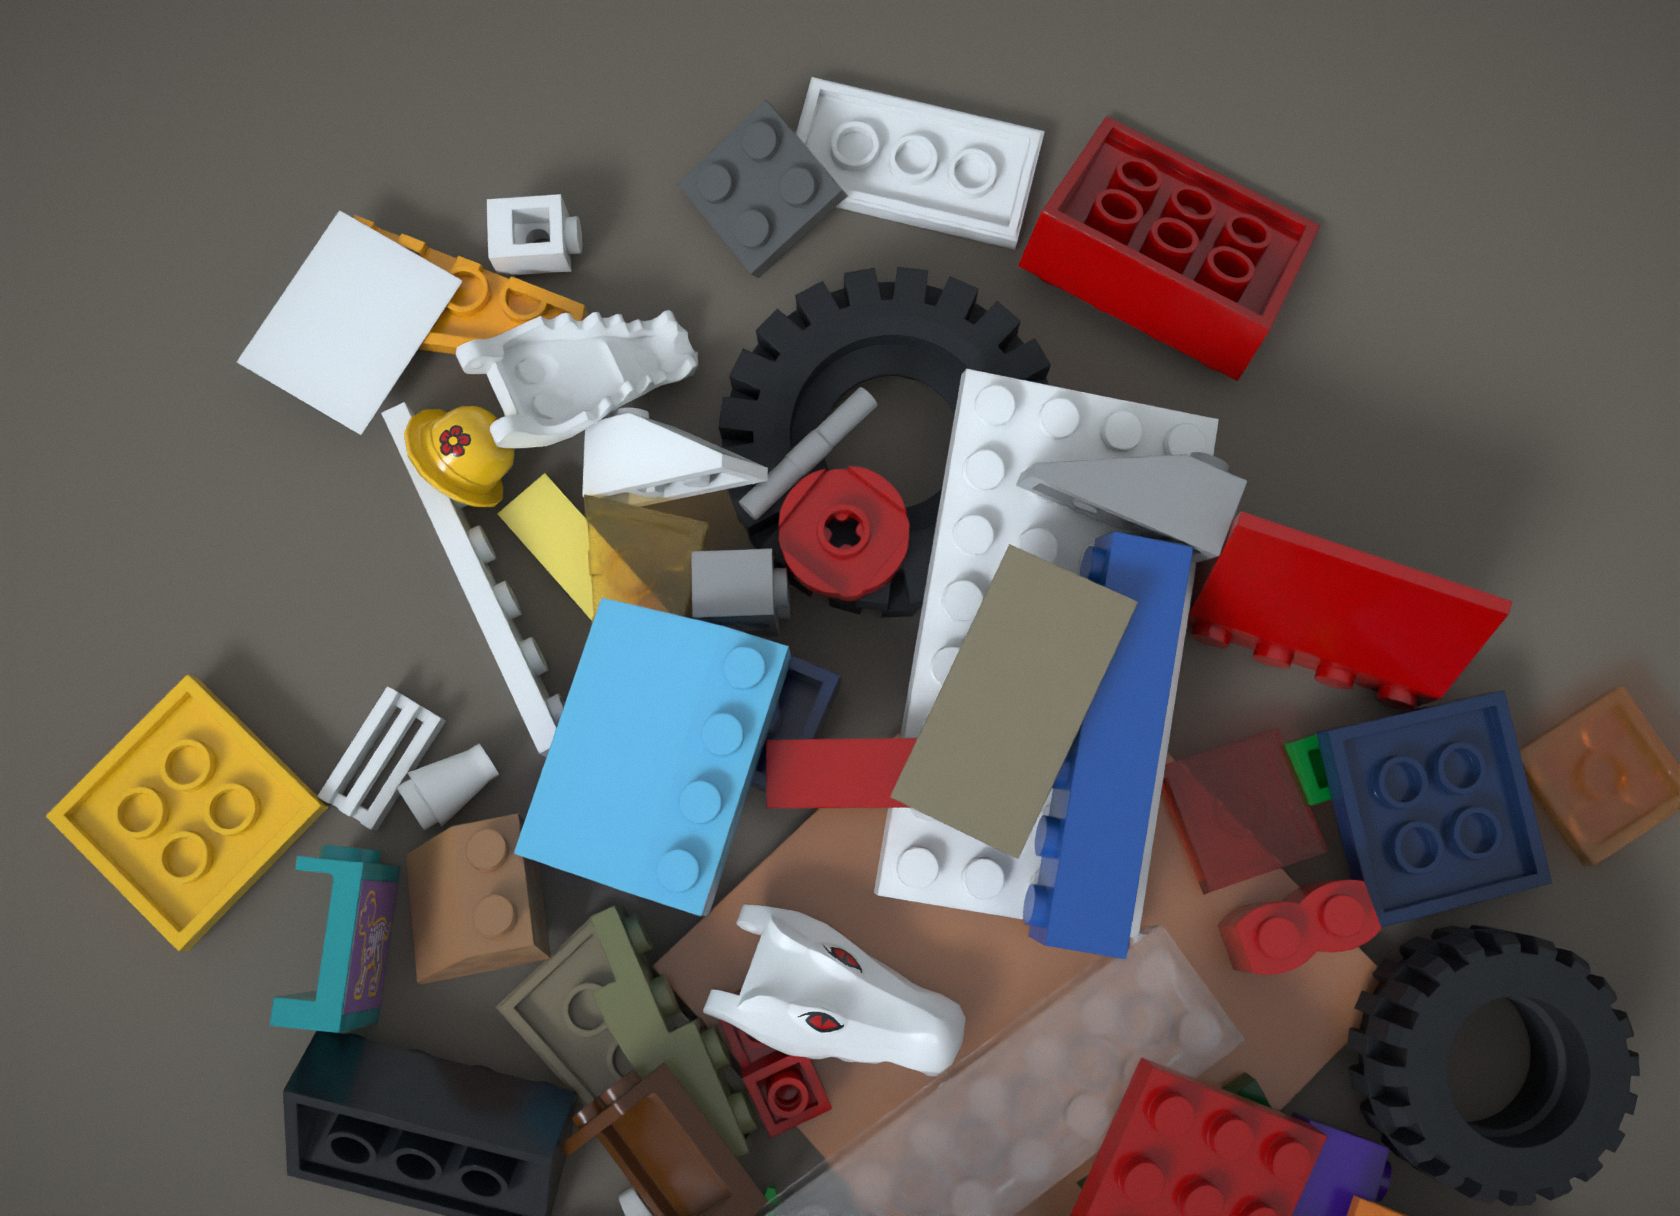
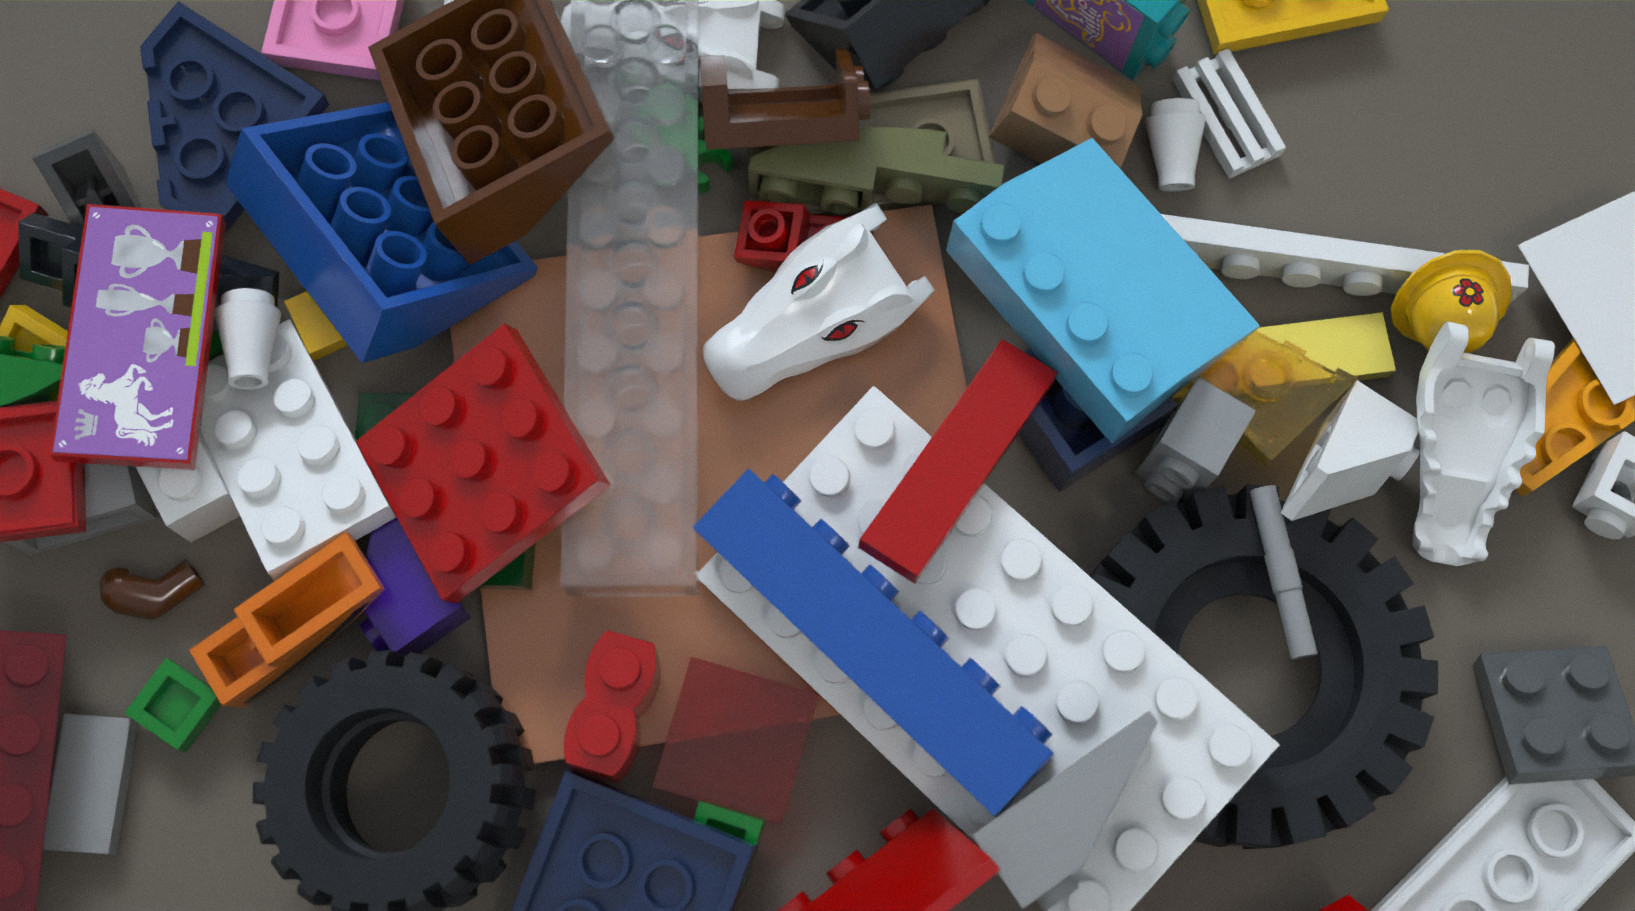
camera: 115 degrees right, 5 degrees down
(838, 495) = (1210, 517): red plate -> none
(1014, 700) = (964, 573): dark tan tile -> none

